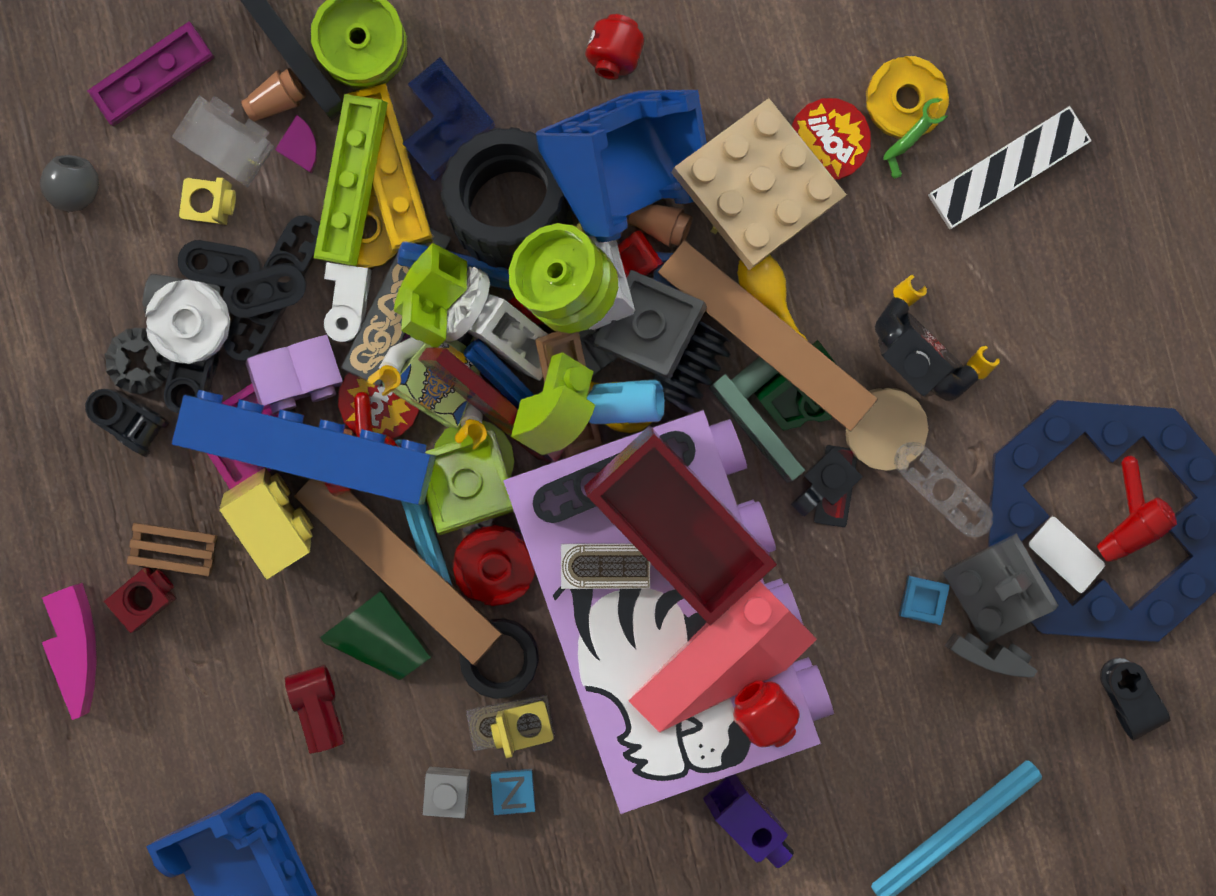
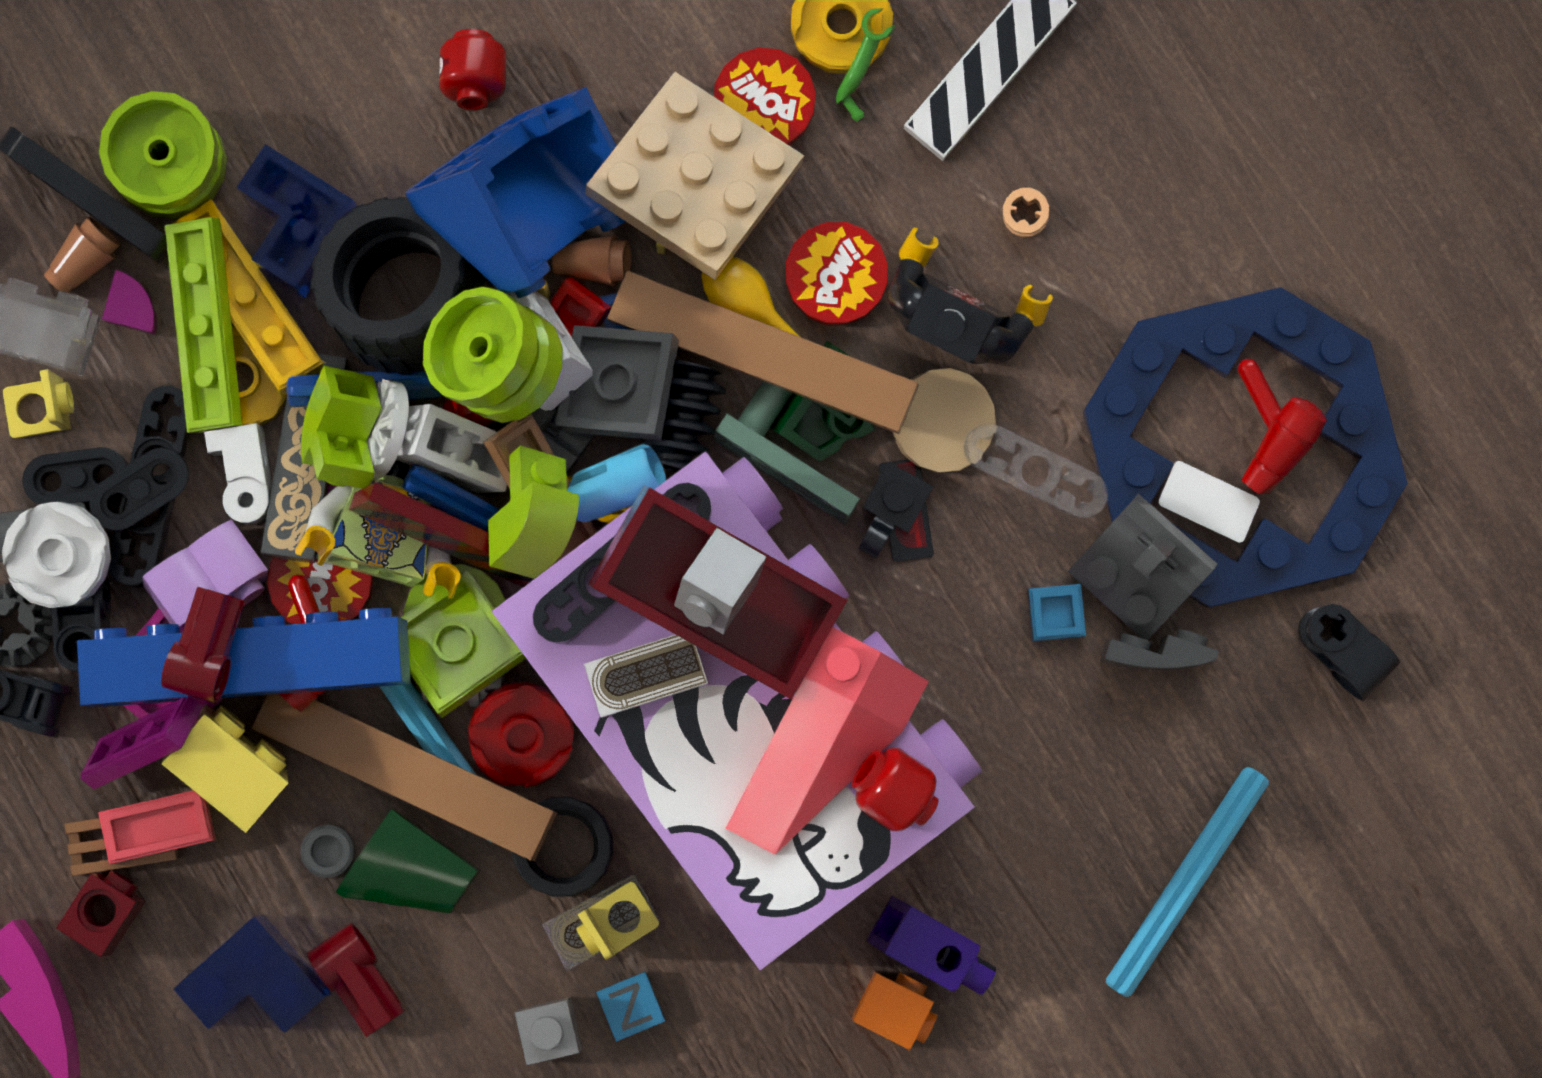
camera: 20 degrees left, 5 degrees down
(200, 548) = (156, 826): none -> coral tile
(208, 484) = (141, 742): none -> magenta tile
(248, 677) = (254, 965): none -> clear blue brick
(272, 440) = (200, 660): none -> dark red piece
(323, 605) = (328, 851): none -> dark grey tile
(684, 523) = (719, 581): none -> light grey brick
(709, 858) = (896, 1009): none -> orange brick
(841, 290) = (836, 273): none -> tile
(1005, 277) = (1029, 197): none -> light nougat bush

